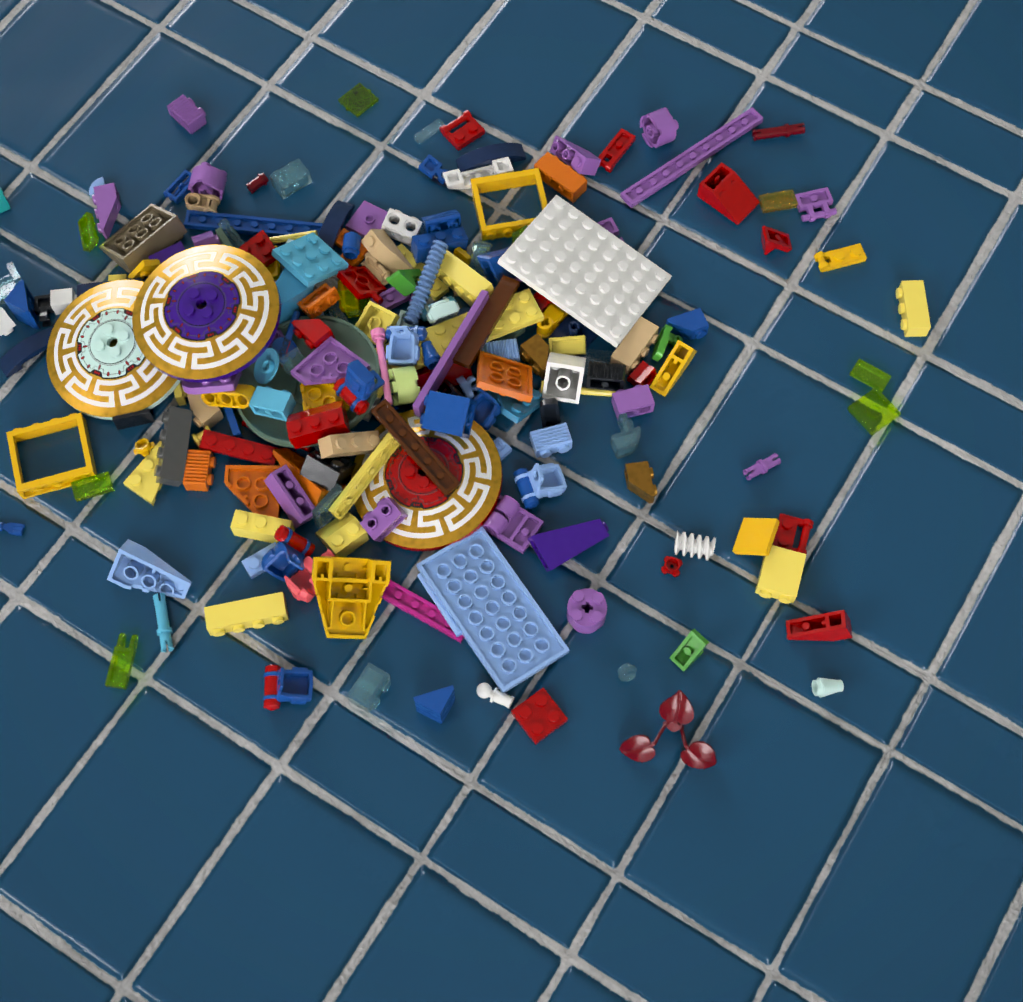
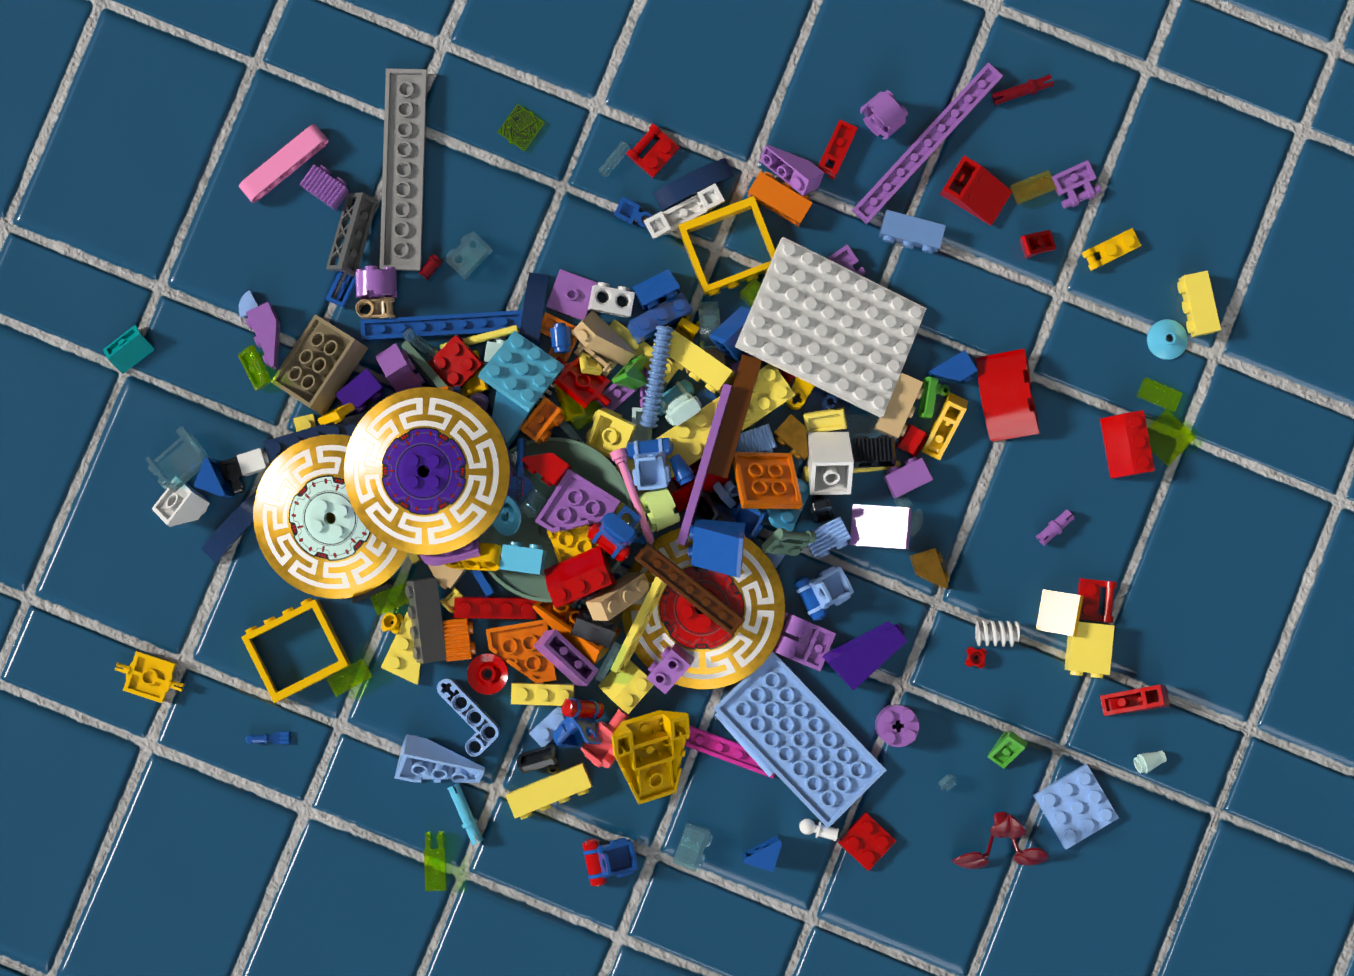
camera: 15 degrees left, 20 degrees up
(147, 428) = (390, 599): none -> clear neon green plate
(158, 93) = (283, 163): none -> bright pink beam
(190, 531) = (466, 712): none -> light blue beam
(199, 147) = (355, 233): none -> dark grey fence
(217, 495) = (477, 678): none -> red dish
(251, 582) = (538, 759): none -> black piece
(254, 112) = (403, 169): none -> light grey plate
(370, 272) = (588, 365): none -> light yellow tile
(511, 434) = (788, 542): none -> sand green plate
(601, 435) = (880, 526): none -> tile
(668, 216) = (911, 231): none -> medium blue brick
(731, 353) = (1007, 395): none -> red panel
(749, 718) = (1075, 806): none -> light blue plate
(836, 407) = (1127, 444): none -> red slope
(880, 340) = (1160, 346): none -> medium azure dish

